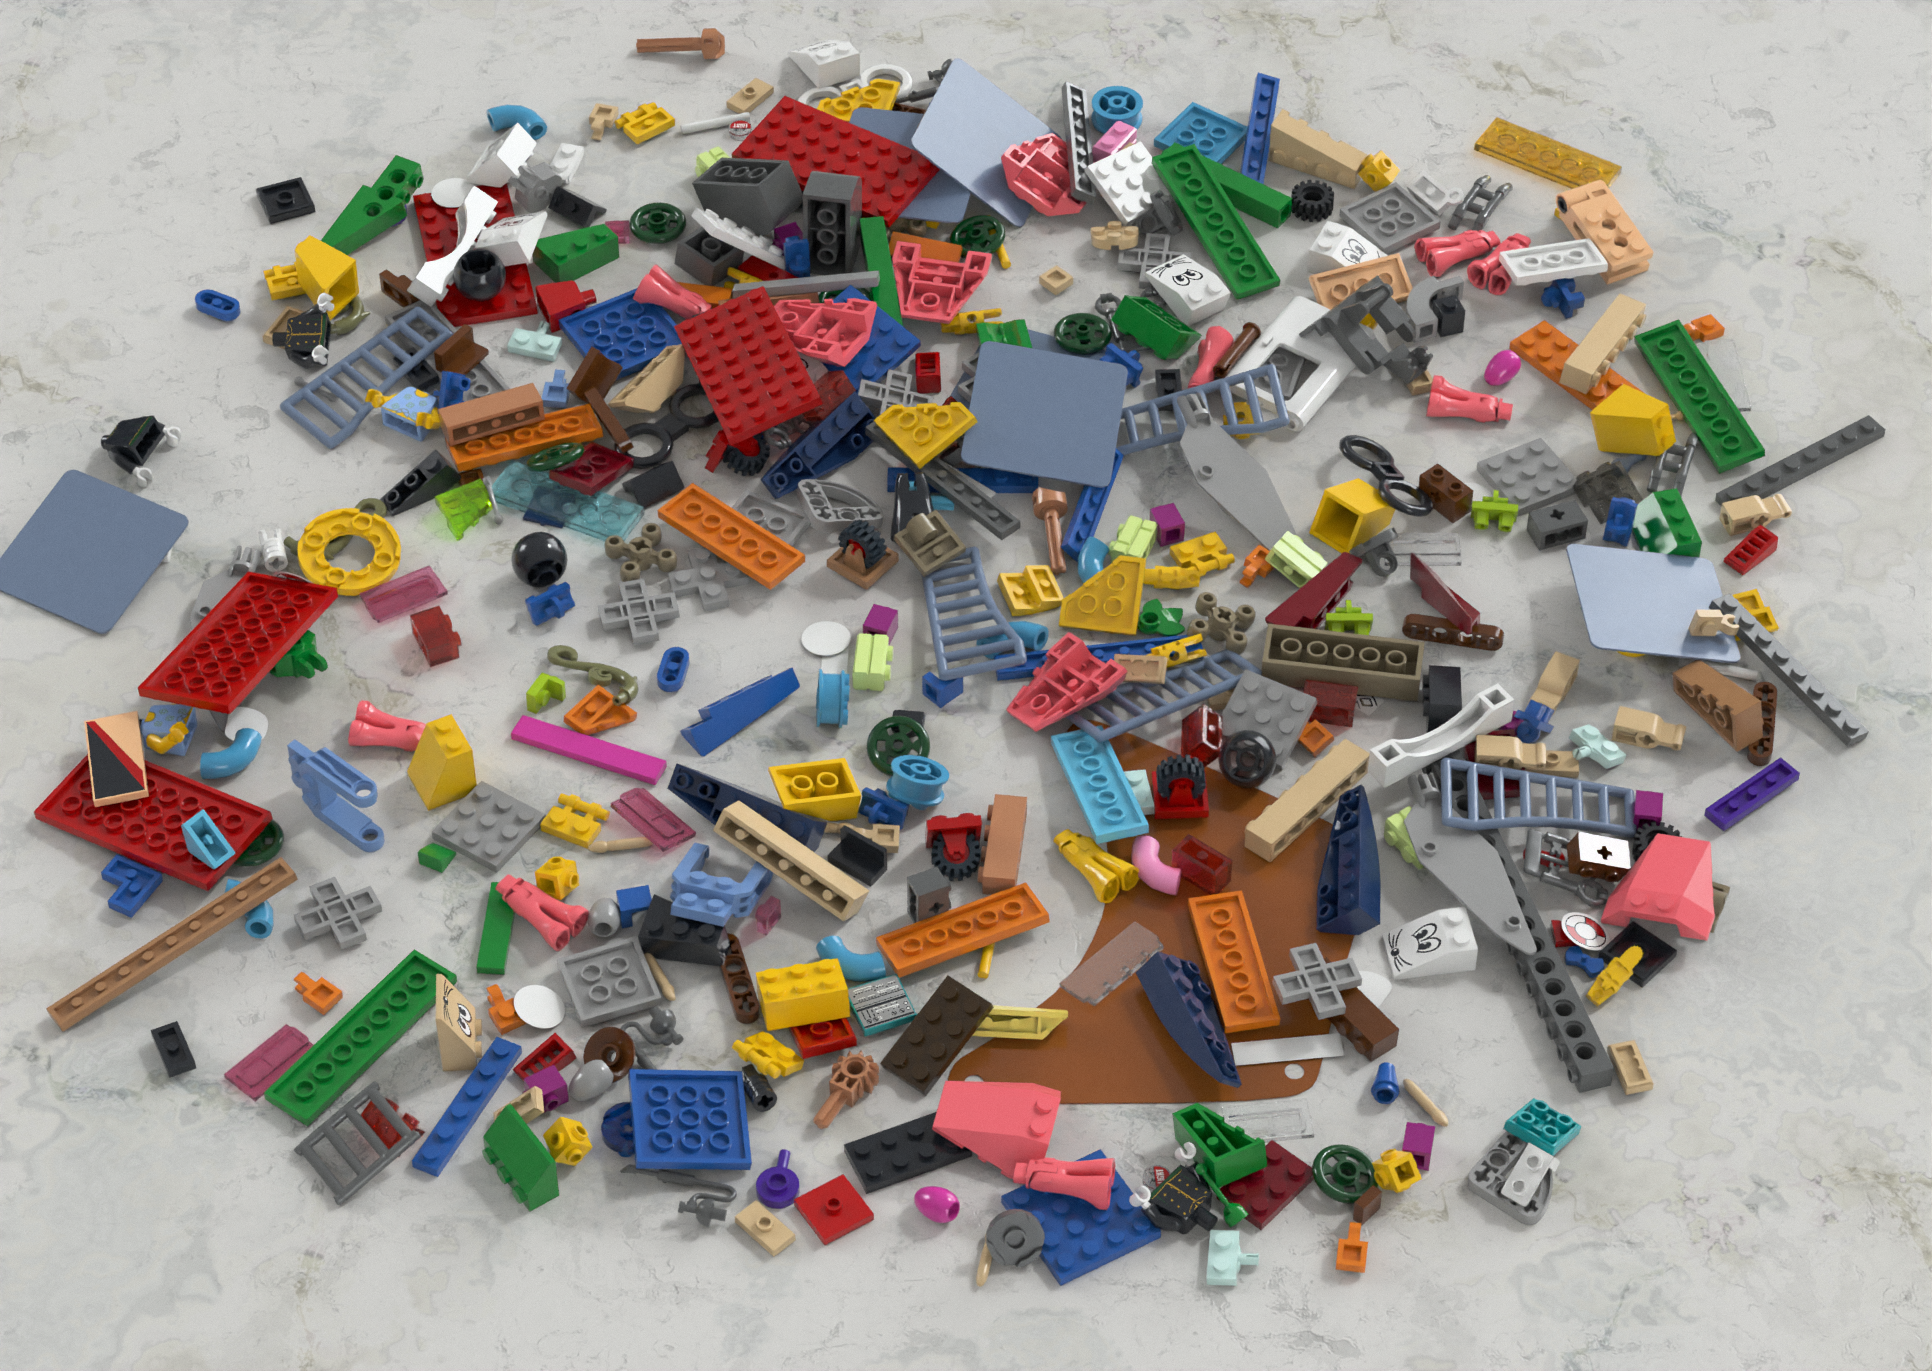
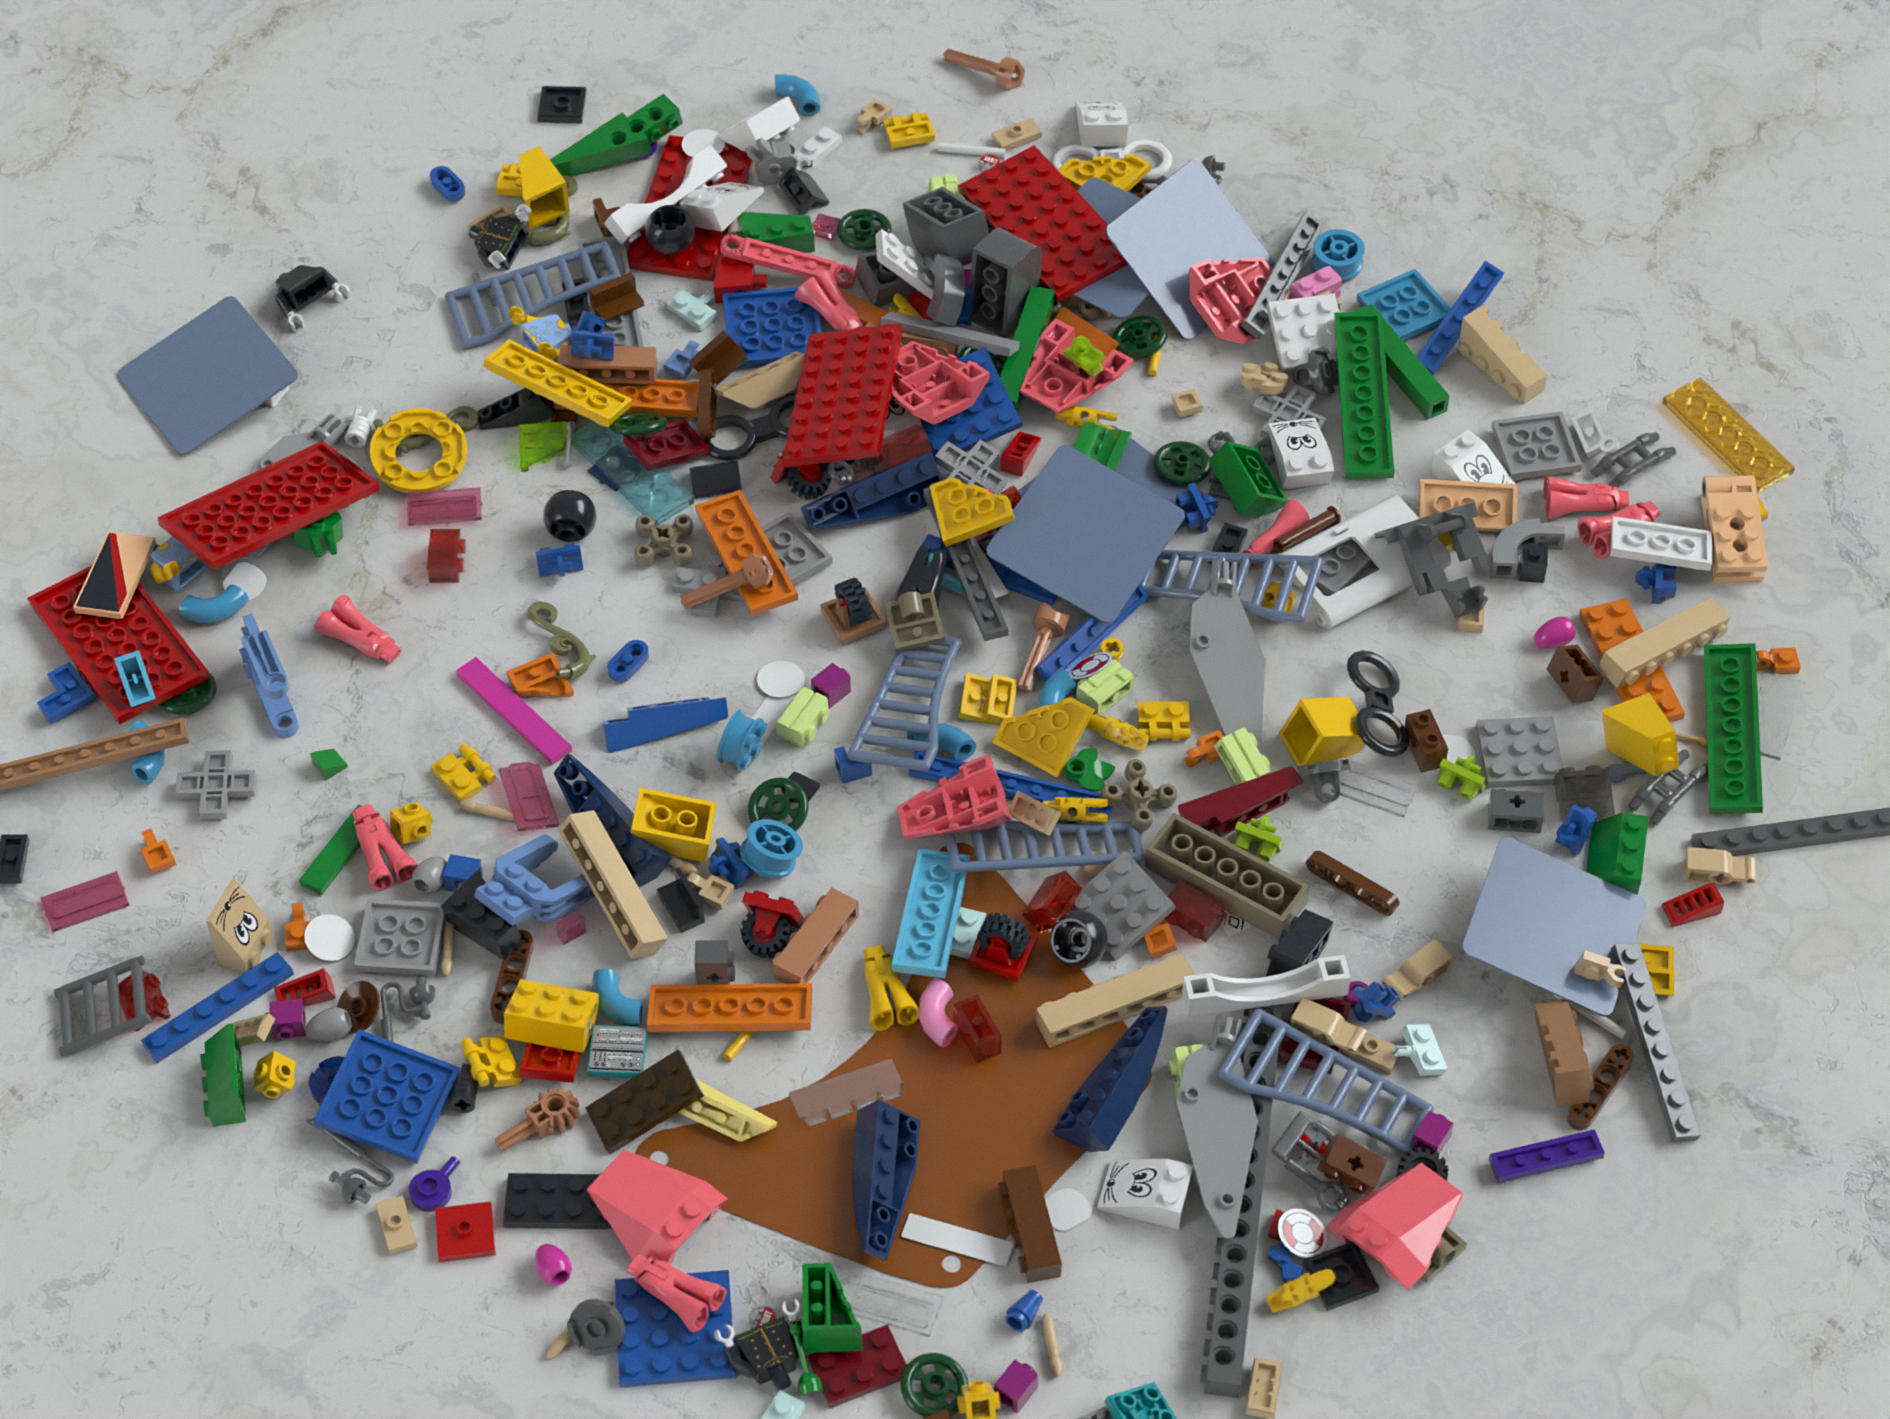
camera: 25 degrees right, 5 degrees up
(358, 1039) = (163, 908): green plate -> none
(442, 764) = (377, 680): yellow slope -> none
(458, 443) = (557, 383): none -> yellow plate
(474, 397) = (593, 345): none -> blue hips
(488, 826) = (388, 751): light grey plate -> none
(541, 691) = (503, 640): lime bracket -> none
(601, 270) = (785, 259): none -> coral plate
(638, 611) = (630, 595): light grey plate -> none
(737, 564) = (732, 581): none -> nougat piece
(788, 243) = (948, 288): none -> dark grey arch
(829, 519) = (848, 564): light grey beam -> none
(946, 263) = (1085, 355): none -> lime hips
(1112, 527) = (1091, 665): none -> sticker
(1117, 505) = (1111, 643): none -> yellow bush
(1169, 524) = (1147, 679): magenta brick -> none
(1233, 962) = (955, 1134): orange plate -> none
(1312, 191) = (1472, 413): black tyre -> none
(1317, 981) = (1008, 1186): light grey plate -> none
(1378, 171) = (1549, 394): yellow brick -> none
(1442, 597) = (1361, 844): dark red wedge -> none
(1452, 401) = (1490, 651): coral piece -> none
(1541, 395) = (1575, 673): none -> reddish brown brick
(1646, 730) = (1480, 1051): tan piece -> none

